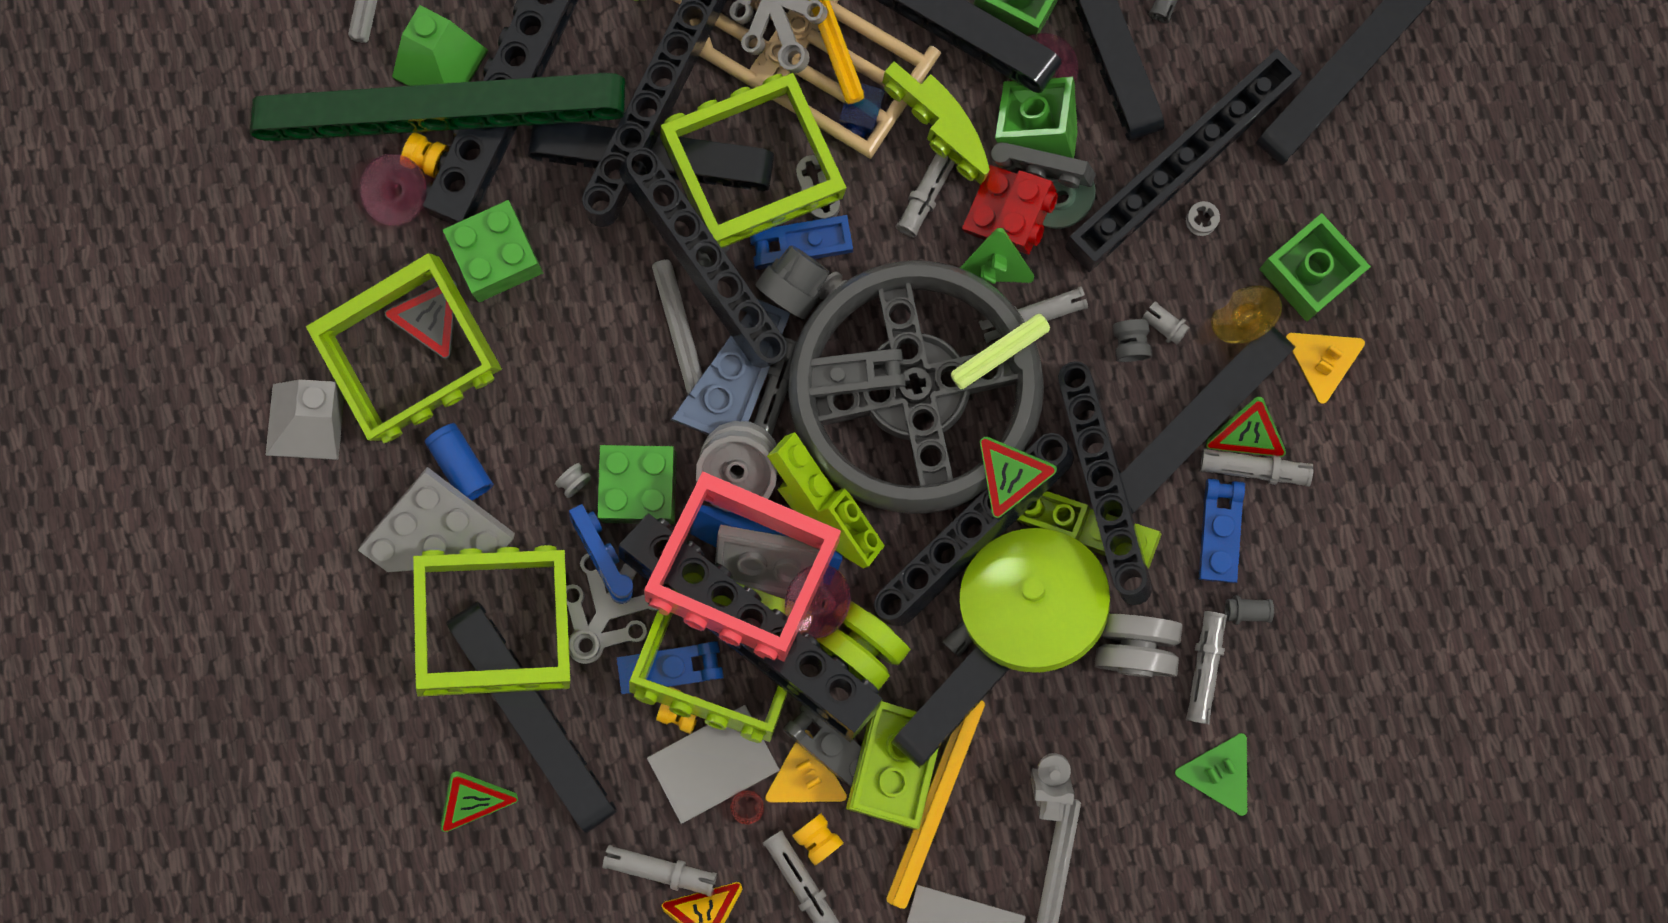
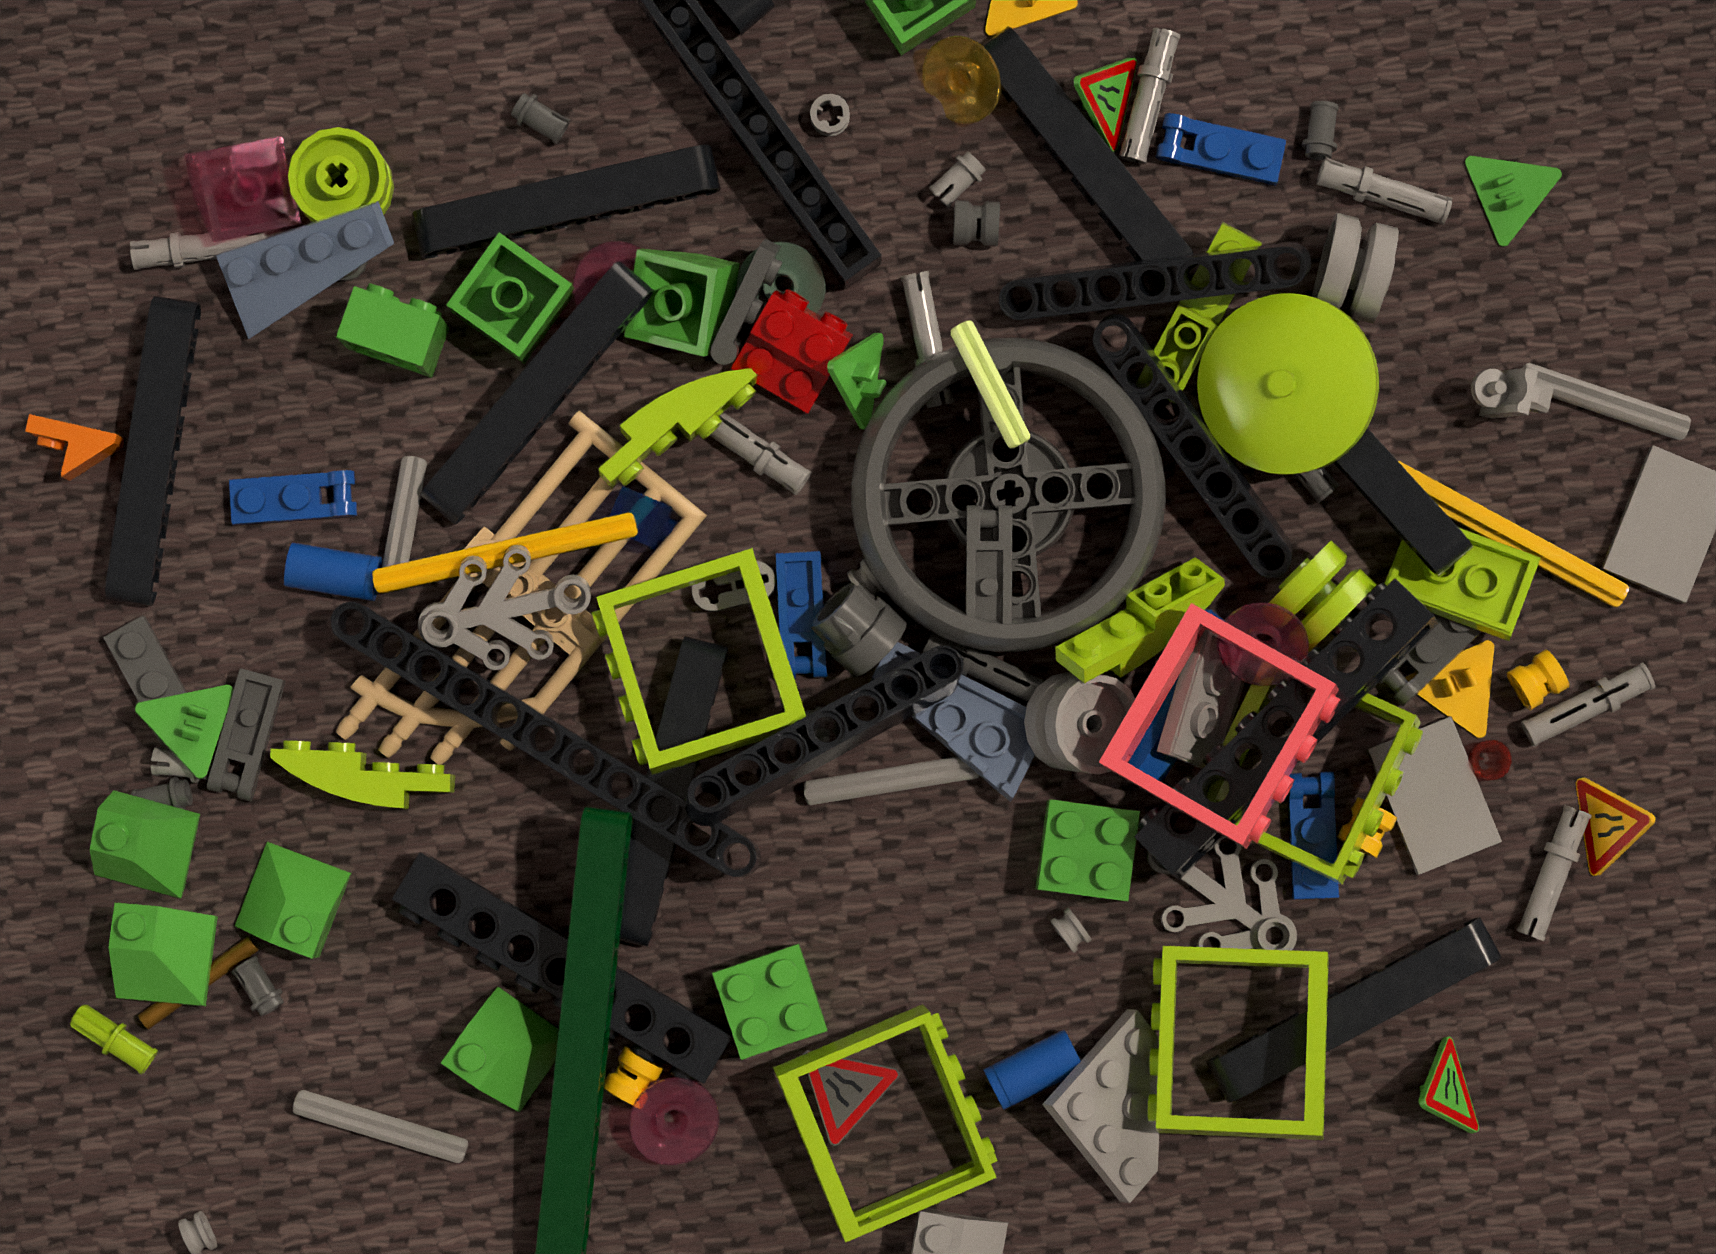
camera: 85 degrees left, 5 degrees up
(603, 556) = (1171, 902): blue plate -> none
(1011, 474) = (1142, 390): piece -> none

